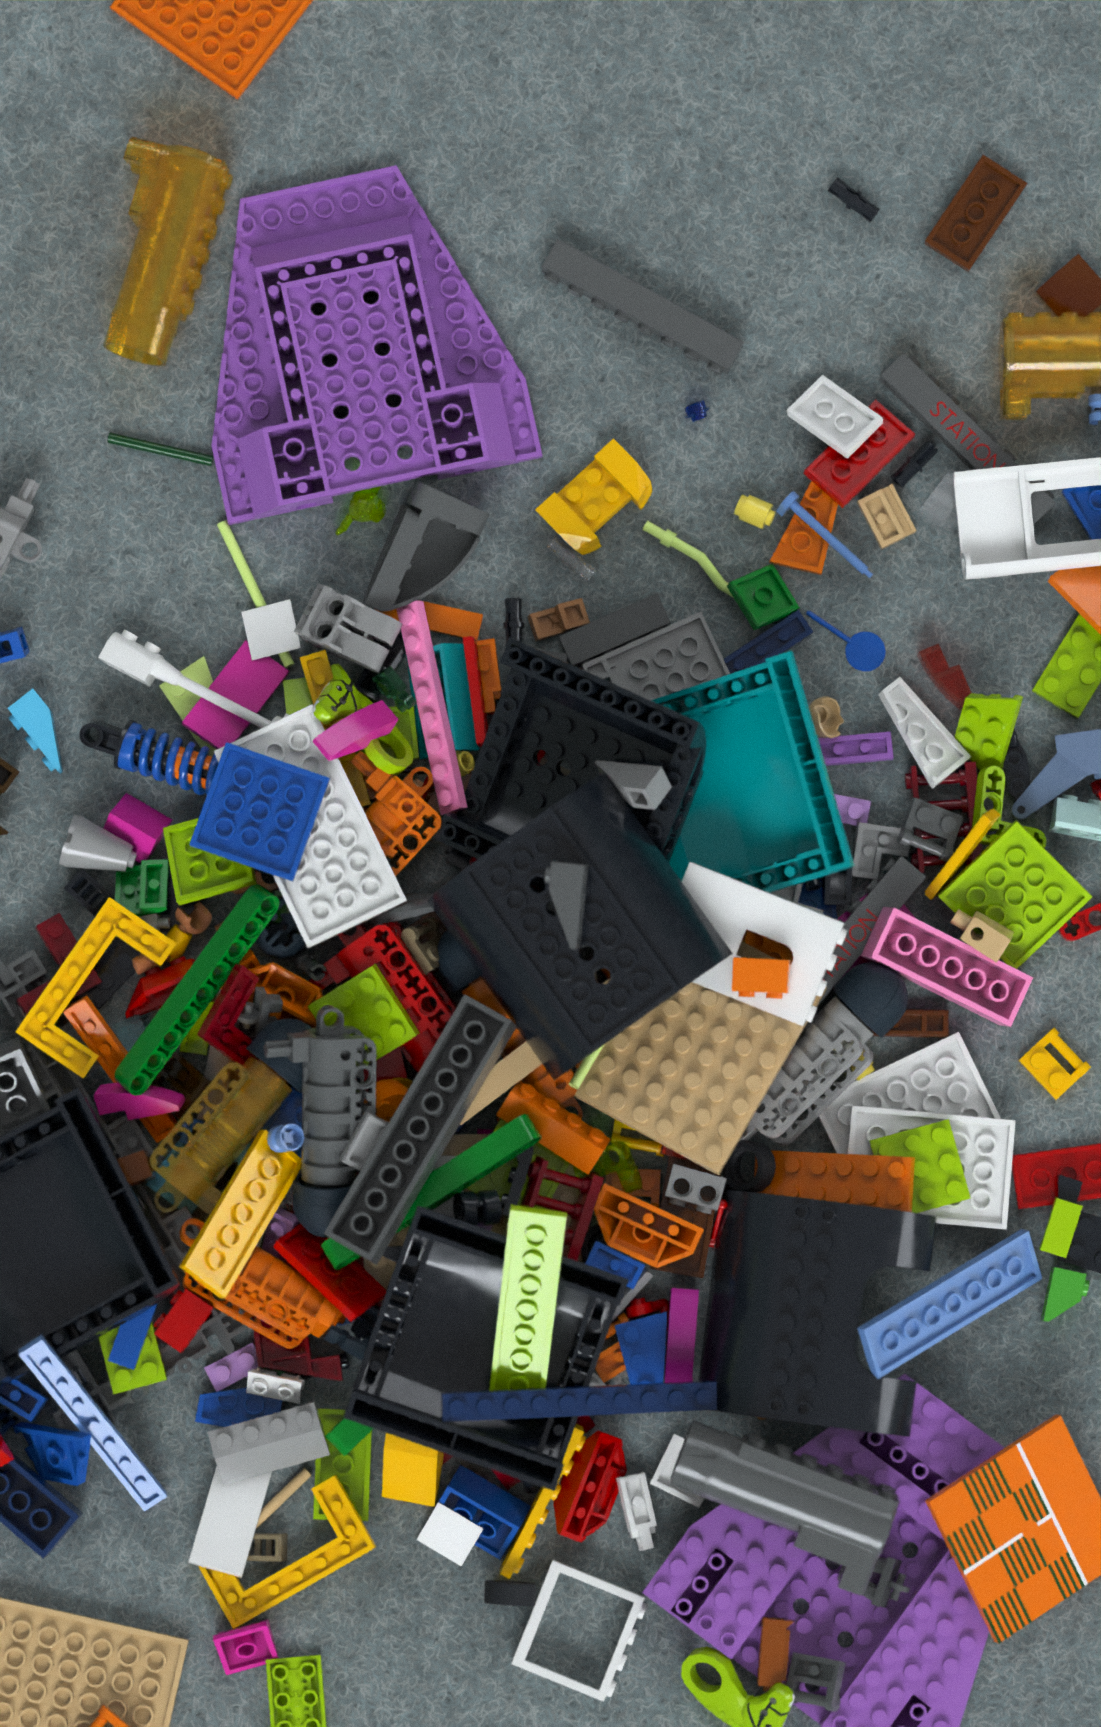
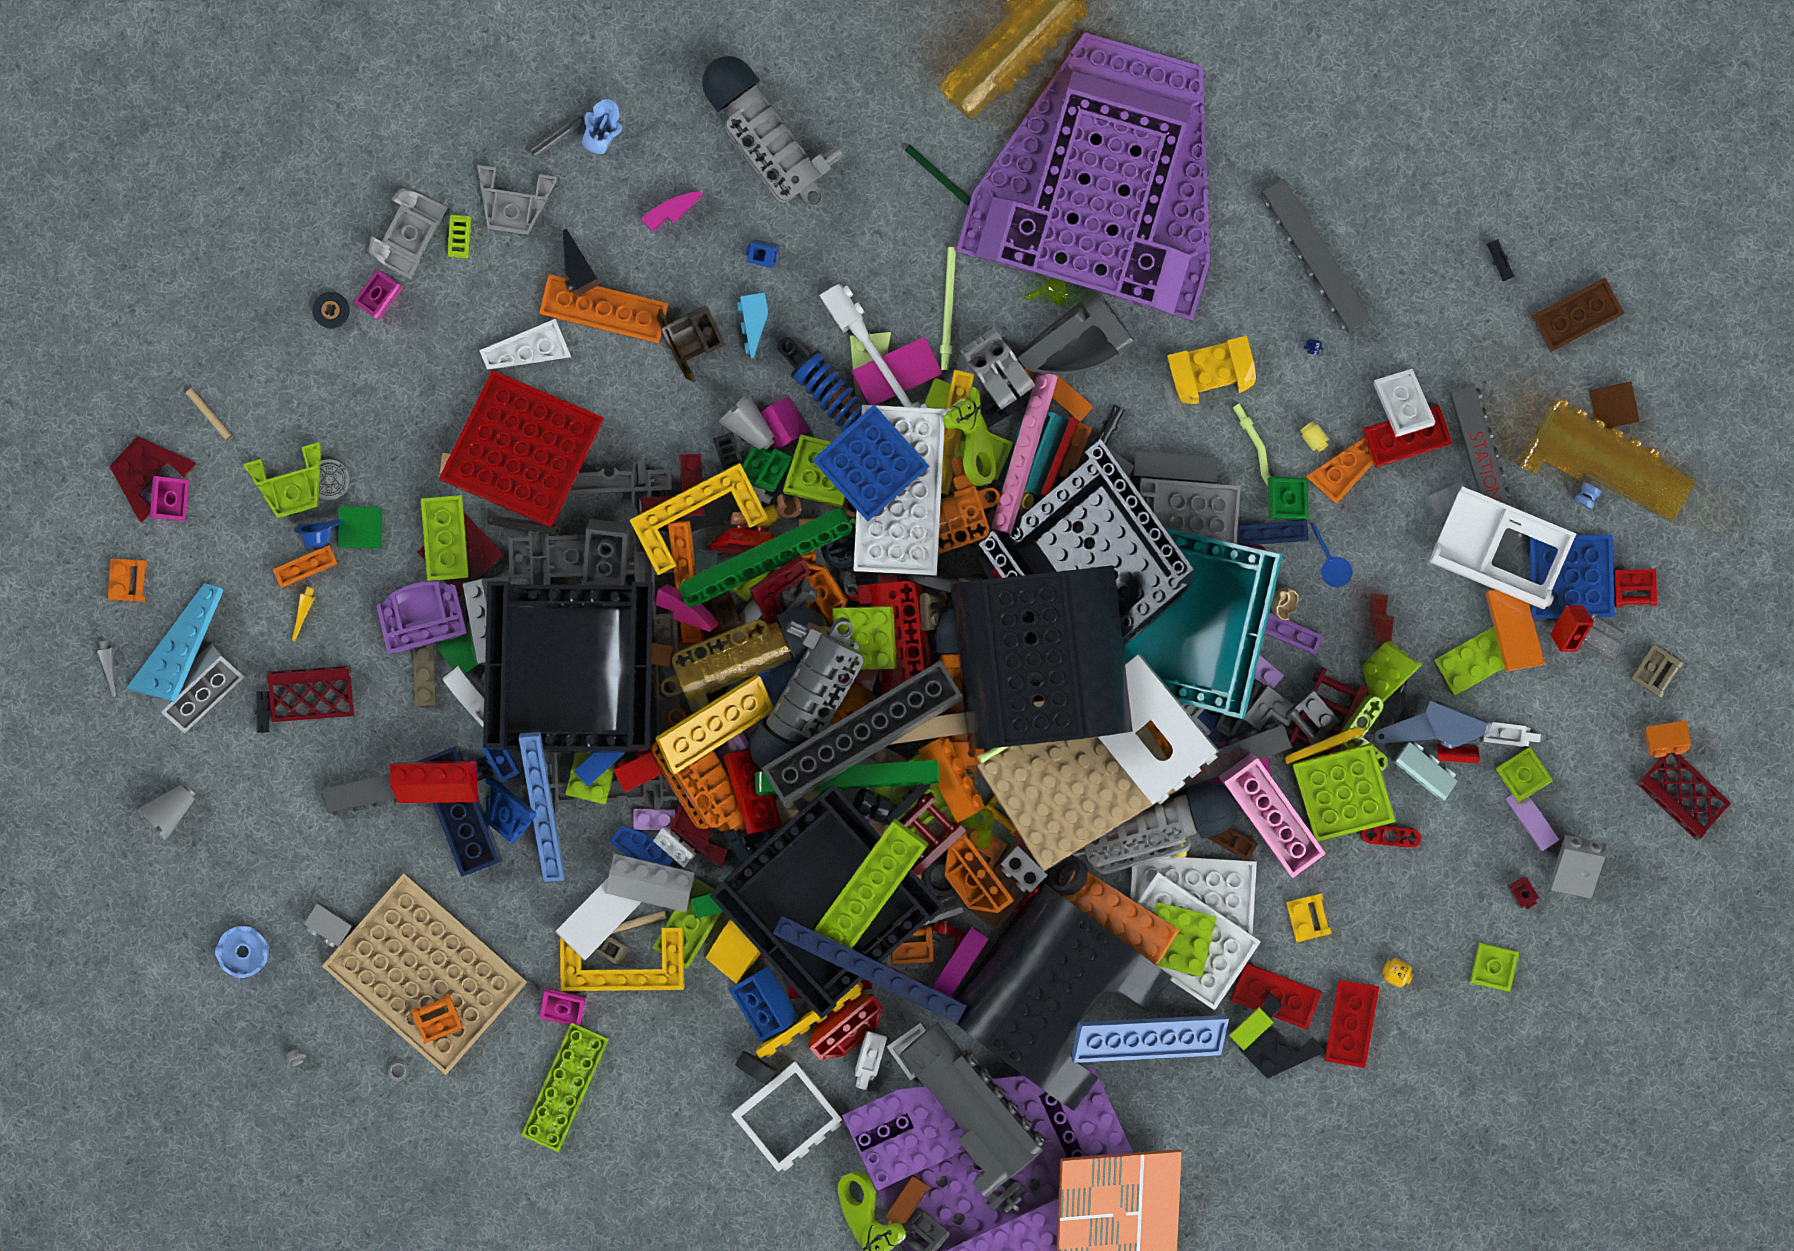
camera: 25 degrees right, 5 degrees up
(270, 629) = (945, 339): white sticker -> none
(285, 1138) = (770, 689): medium blue wheel -> none
(356, 731) = (964, 443): dark pink slope -> none
(363, 1140) = (821, 720): light grey tile -> none
(393, 687) = (1005, 423): clear green plate -> none
(449, 1534) = (736, 1007): white sticker -> none
(558, 620) = (1142, 437): medium nougat slope -> none
(568, 892) = (1044, 635): dark grey slope -> none
(616, 1263) = (942, 890): blue plate -> none
(637, 784) = (1131, 584): light grey slope -> none
(644, 1348) = (931, 956): blue wing -> none
(761, 975) = (1143, 756): orange brick -> none
(790, 502) = (1352, 476): medium blue piece -> none
(886, 516) = (1401, 489): tan plate -> none
(914, 464) = (1440, 463): black axle -> none
(926, 737) = (1345, 655): white wing -> none
(991, 942) = (1311, 814): tan torso -> none
(1063, 1292) = (1229, 1071): bright green slope -> none

